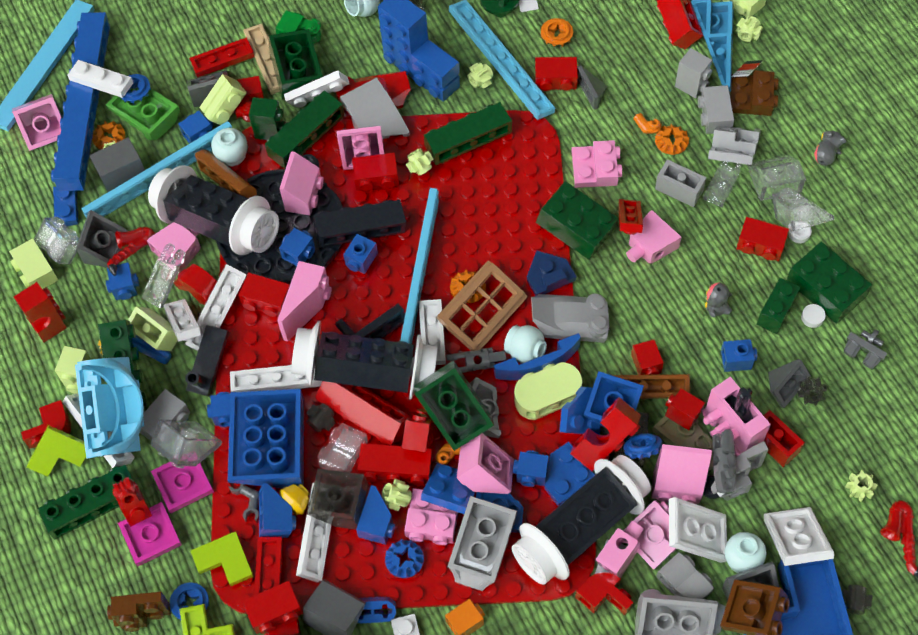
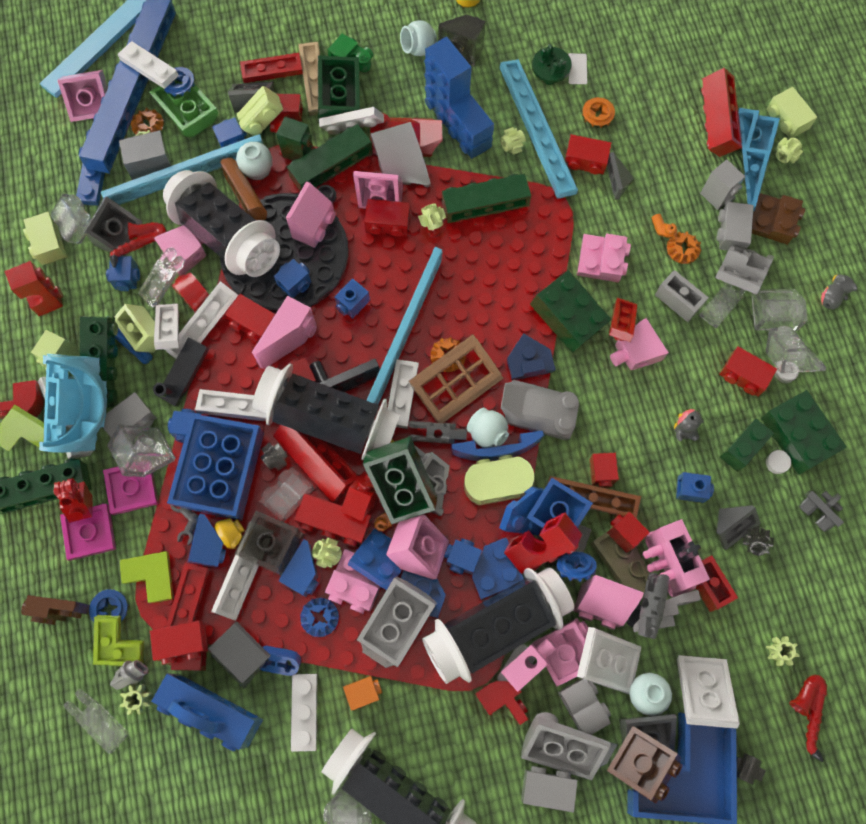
camera: 10 degrees right, 10 degrees up
(367, 220) = (362, 266): black brick -> none
(747, 68) = (776, 191): sticker -> none

